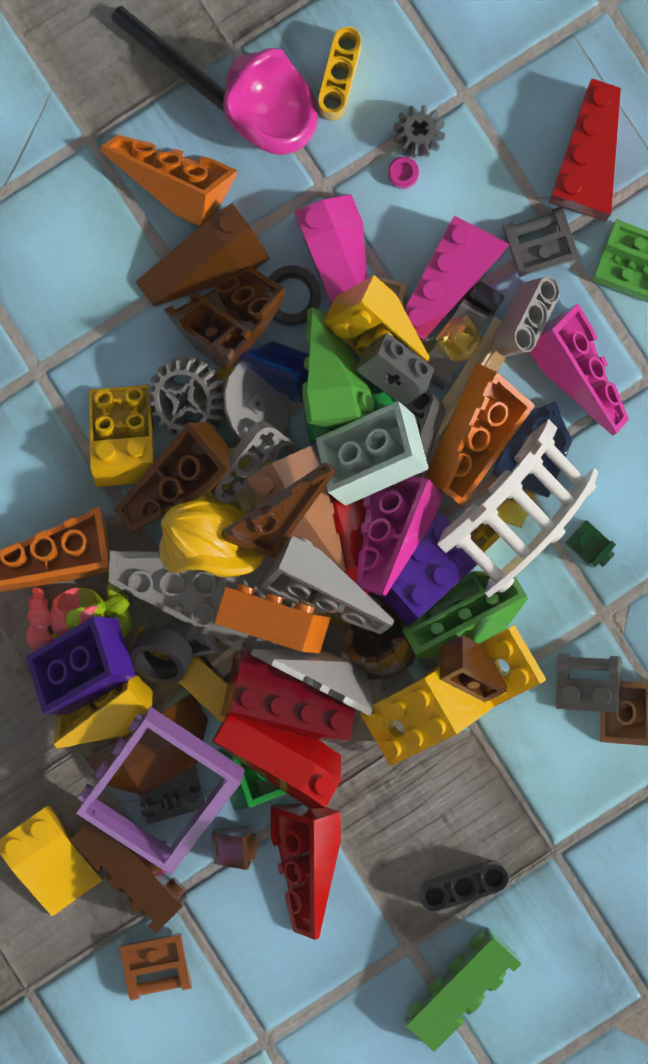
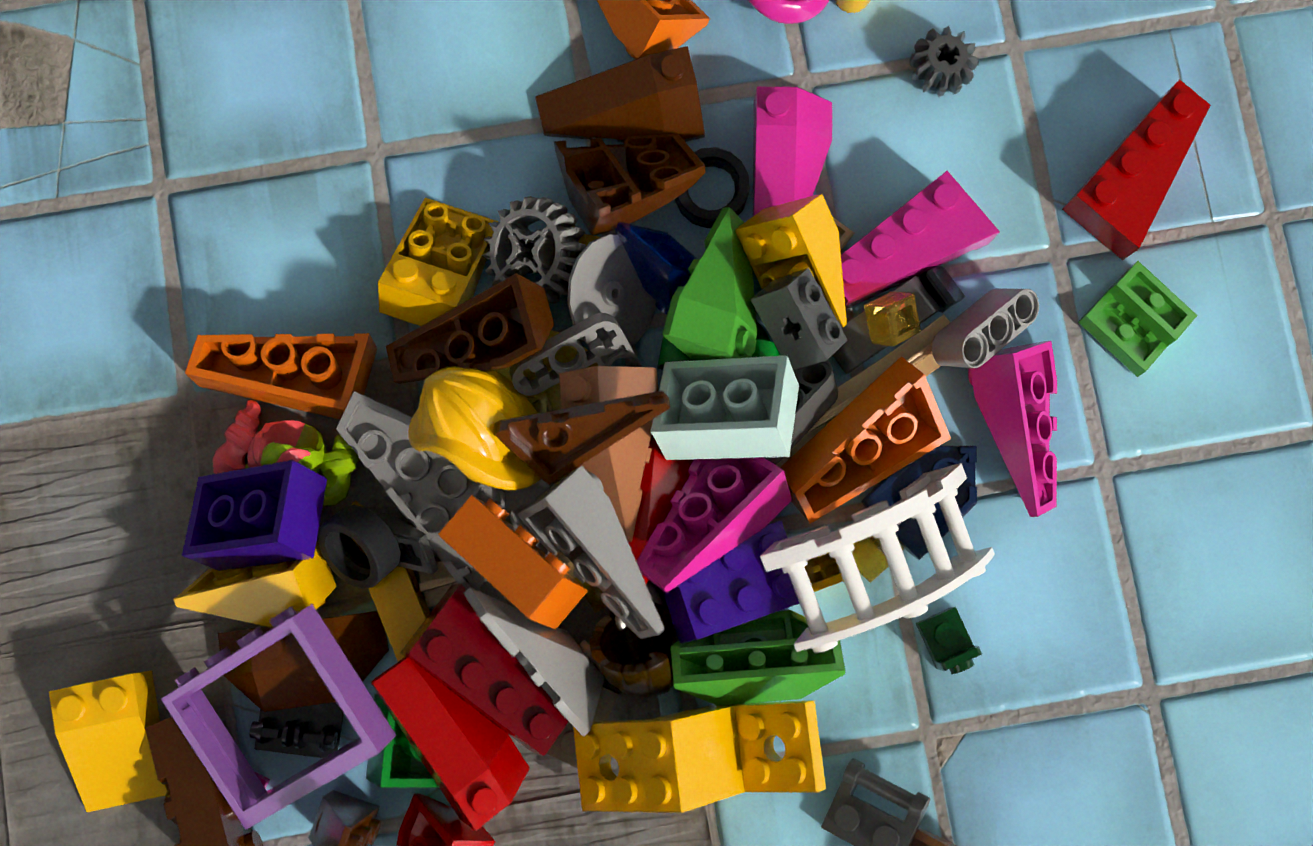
camera: 20 degrees right, 5 degrees down
(403, 172) = (904, 103): dark pink tile -> none
(470, 669) = (735, 733): reddish brown slope -> none
(544, 251) = (1036, 262): dark grey plate -> none

